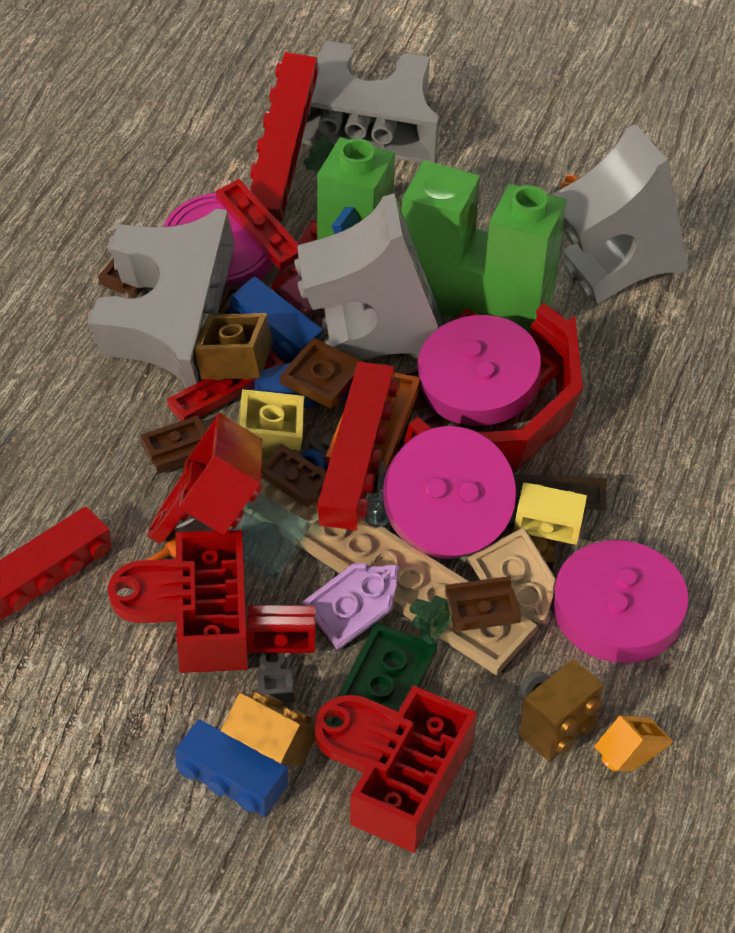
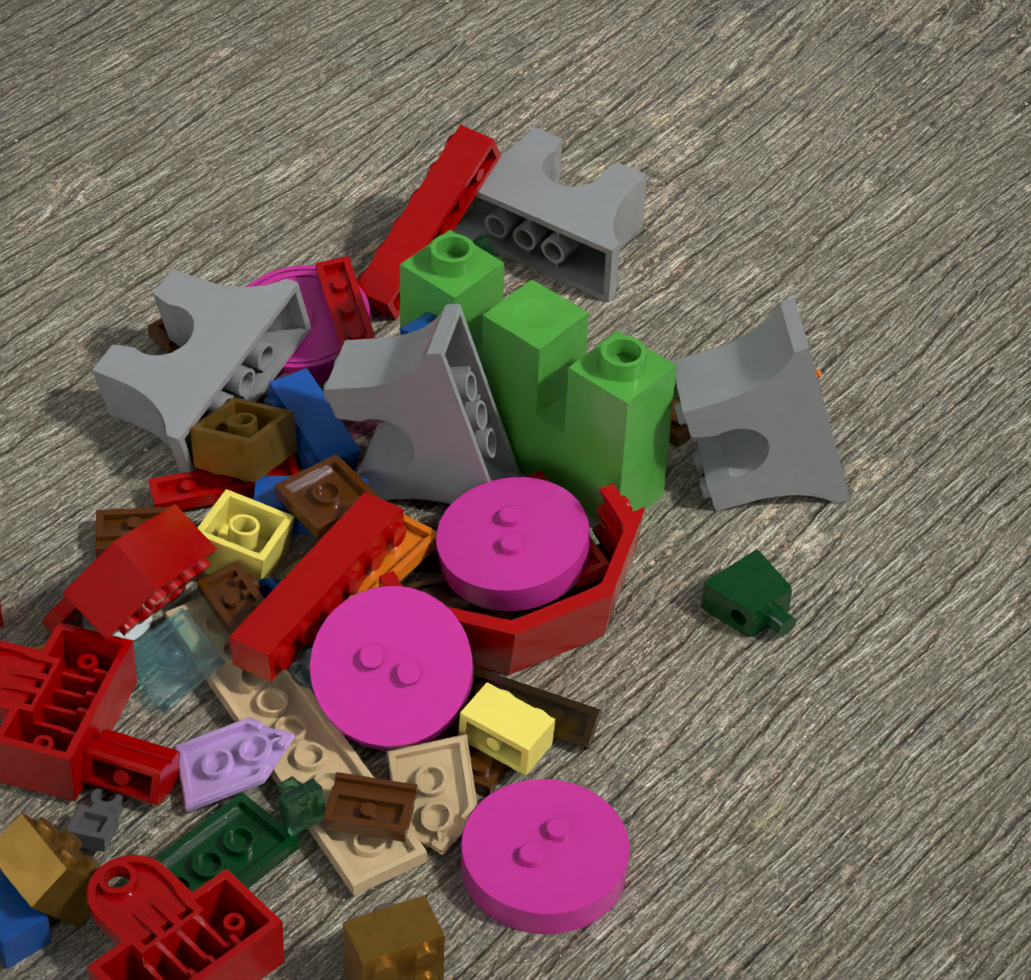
camera: 20 degrees right, 5 degrees down
(662, 361) = (750, 597): none -> dark green torso

